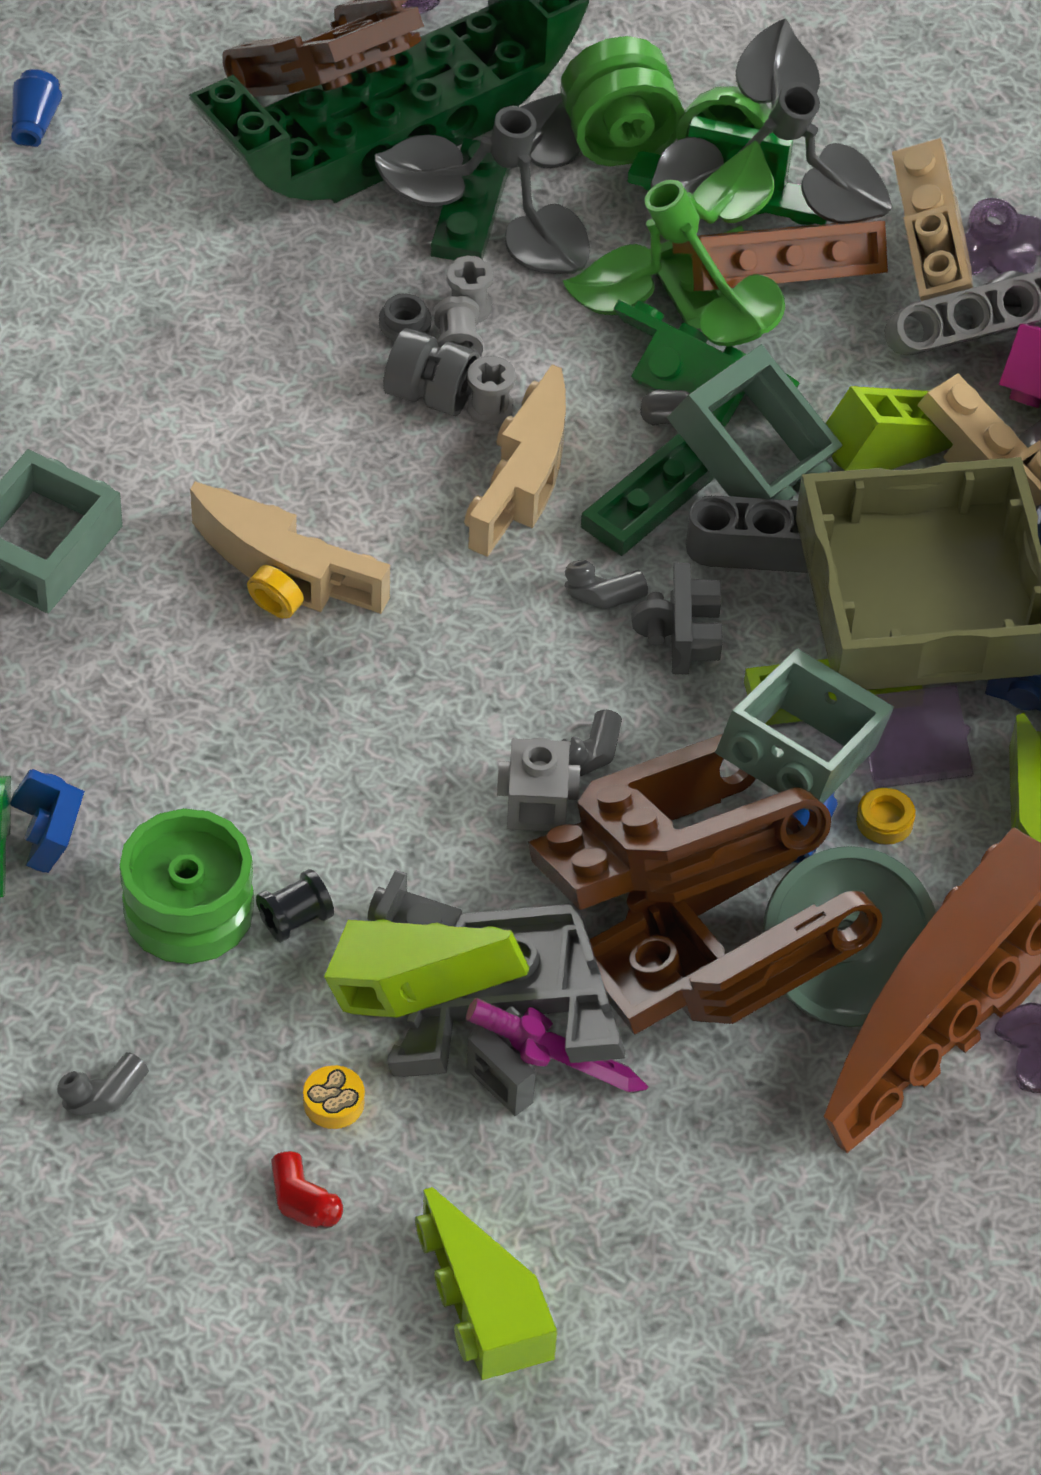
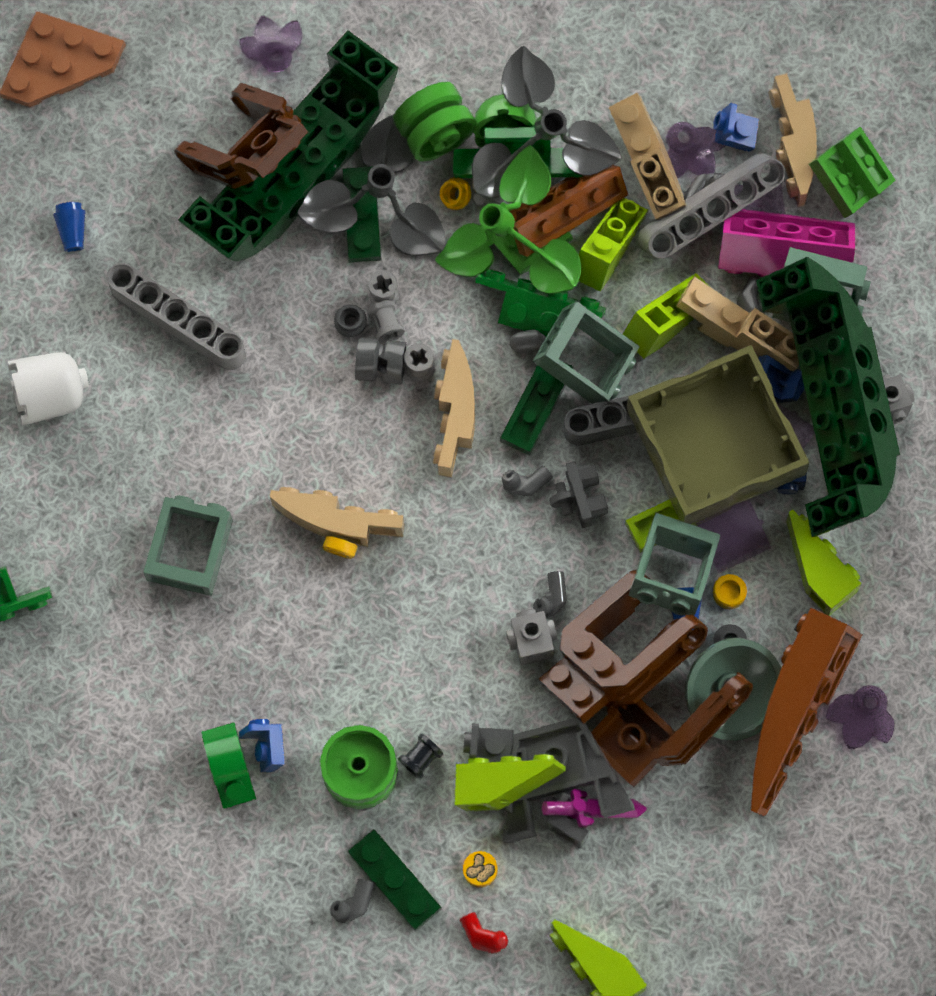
camera: 10 degrees left, 20 degrees up
(143, 247) = (170, 303): none -> light grey beam
(185, 1075) = (394, 880): none -> dark green plate
(622, 205) = (448, 190): none -> yellow plate
(833, 319) = (609, 242): none -> lime slope

